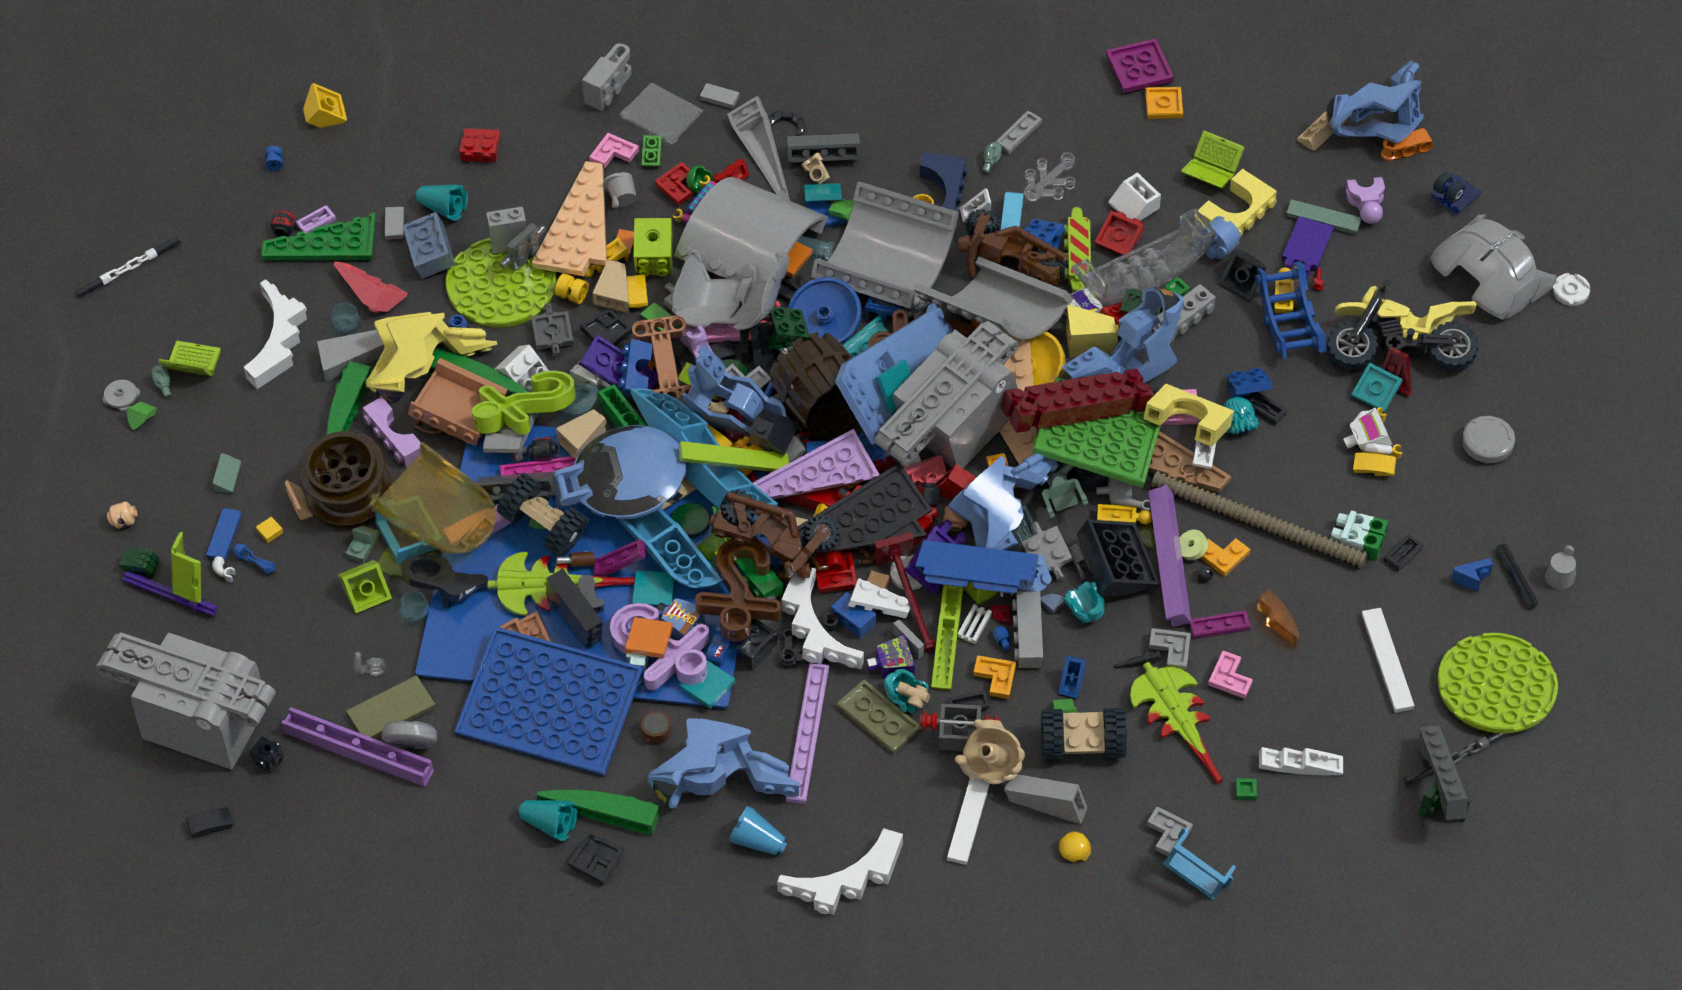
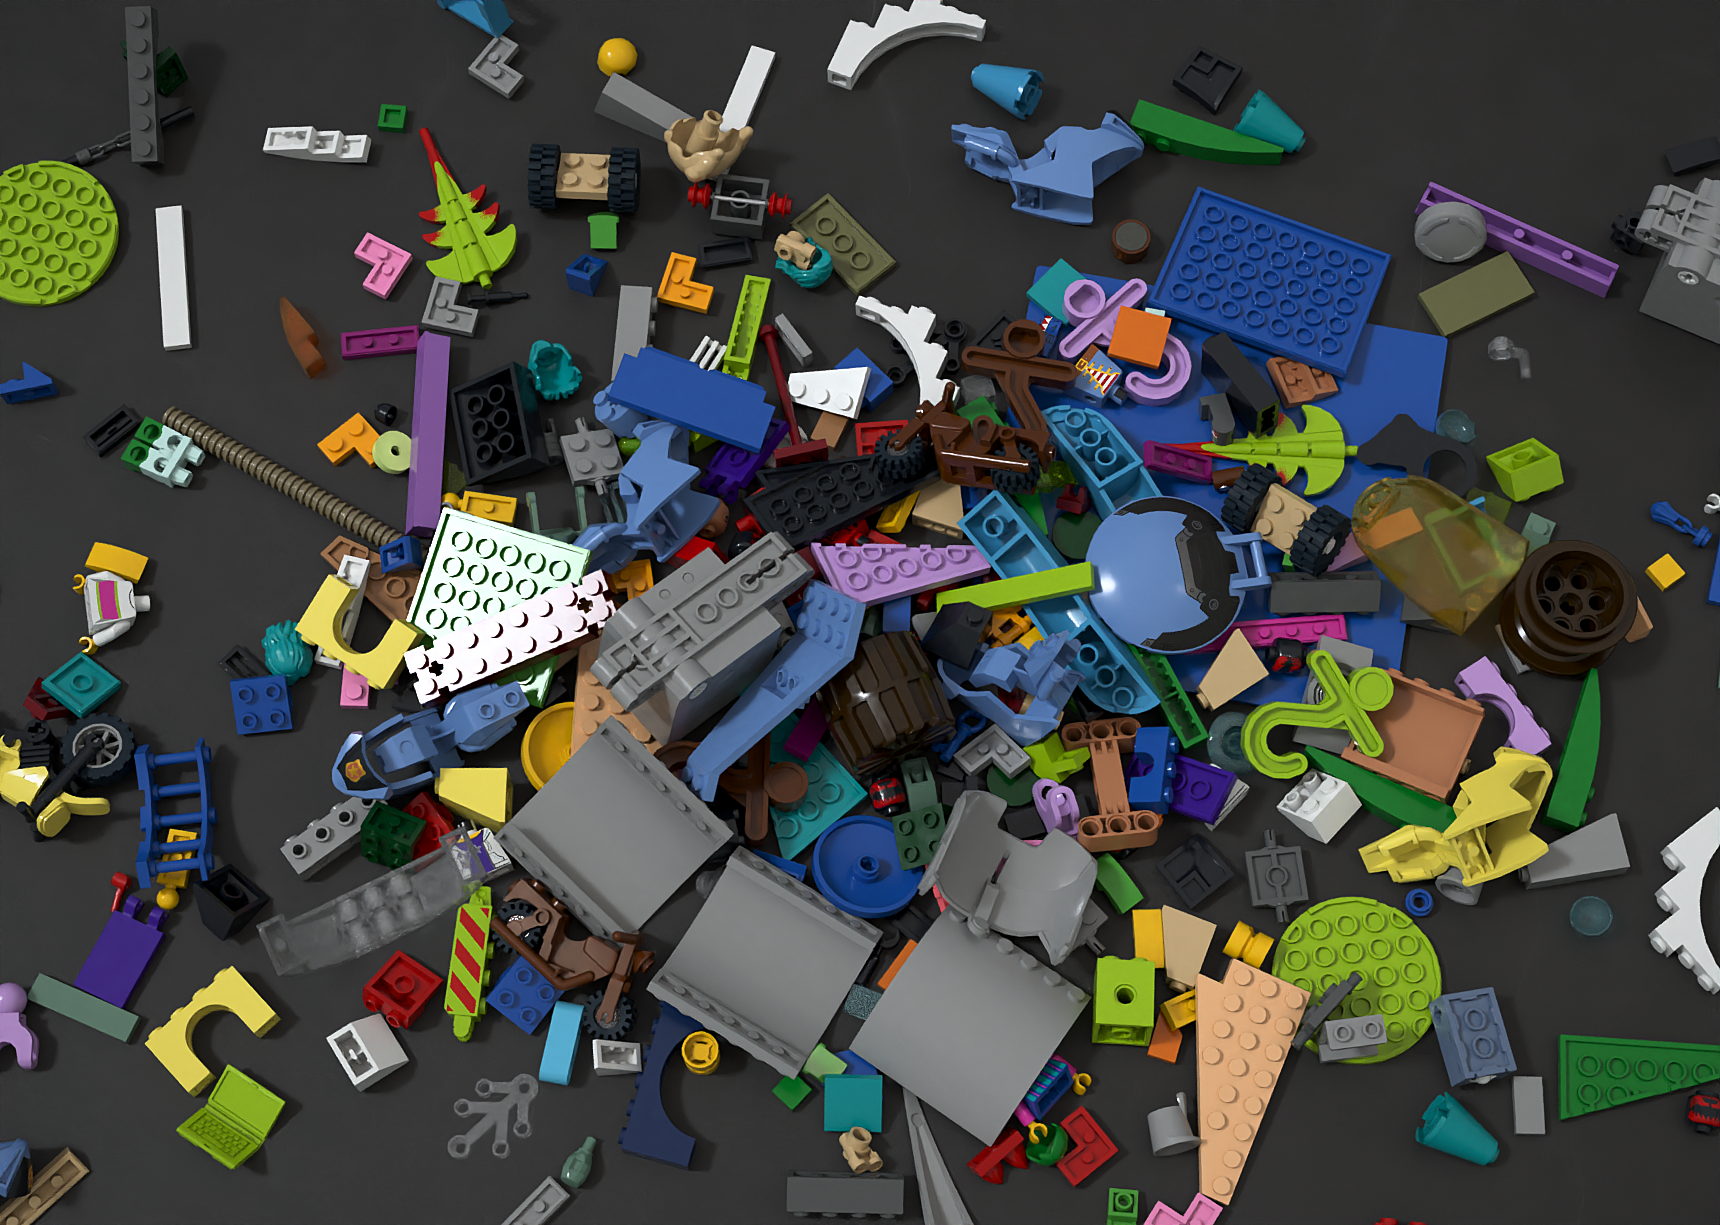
camera: 175 degrees left, 15 degrees up
(317, 221) = (1633, 1133): lavender tile -> none
(370, 289) = (1553, 971): coral wedge -> none
(653, 588) = (1135, 425): teal tile -> none
(695, 532) = (1074, 503): none -> dark red tile
(808, 729) = (936, 225): lavender tile -> none
(891, 380) = (774, 666): teal tile -> none
(892, 656) = (817, 313): torso -> none
(1002, 637) = (670, 339): blue cylinder -> none
(1052, 602) = (592, 386): sand blue tile -> none
(1169, 467) = (401, 555): none -> blue slope
(1178, 286) = (332, 887): green tile -> none
(1226, 238) = (250, 958): medium blue brick -> none

